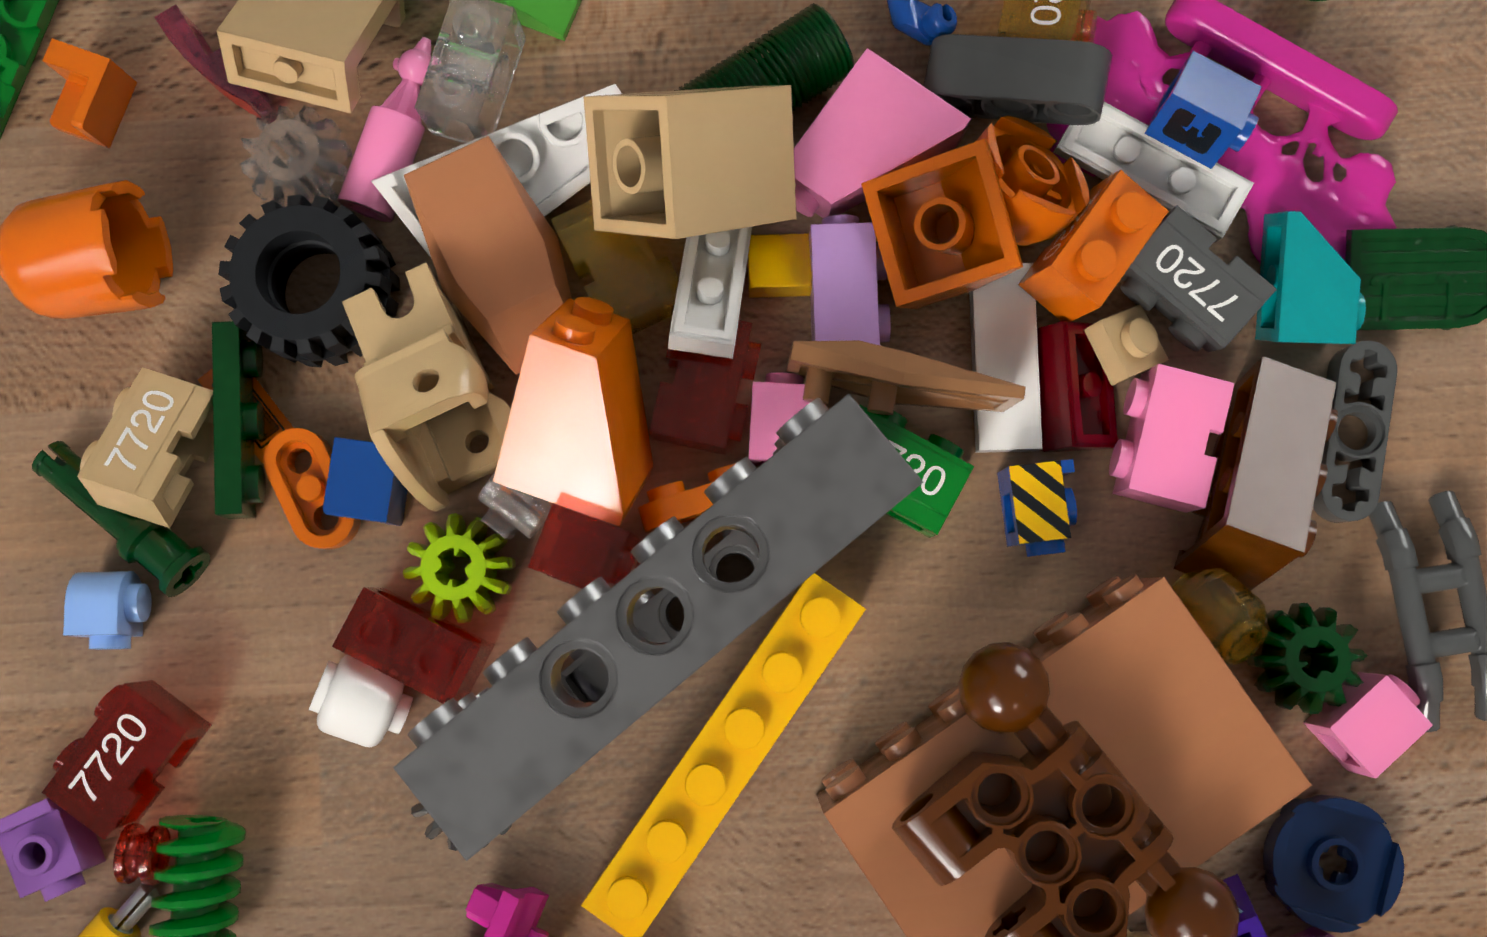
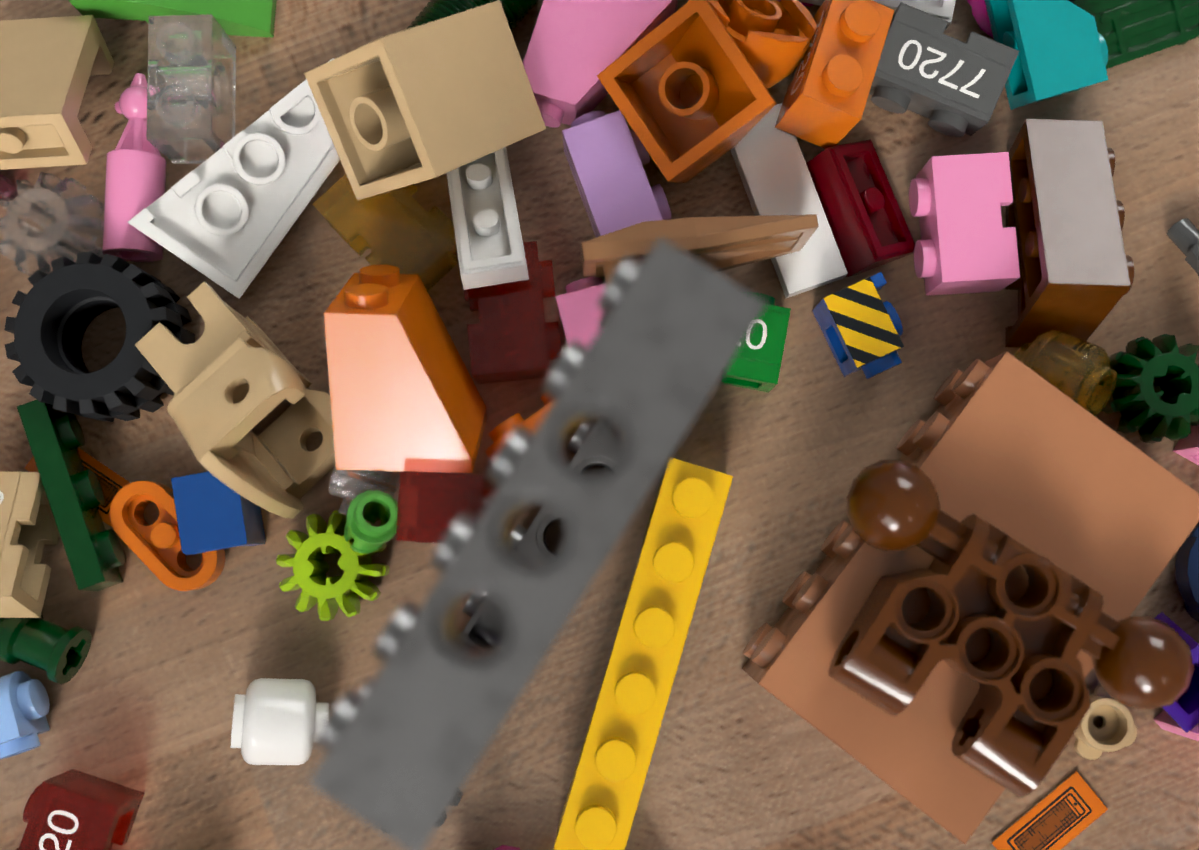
camera: 15 degrees left, 0 degrees up
(412, 645) = (306, 652): clear red brick -> none
(489, 246) = (260, 247): nougat piece -> none
(513, 526) = (371, 506): none -> bright green pin
(779, 265) = (545, 182): yellow slope -> none
(1126, 344) = (893, 151): tan plate -> none
(1376, 416) = (1148, 145): dark grey beam -> none

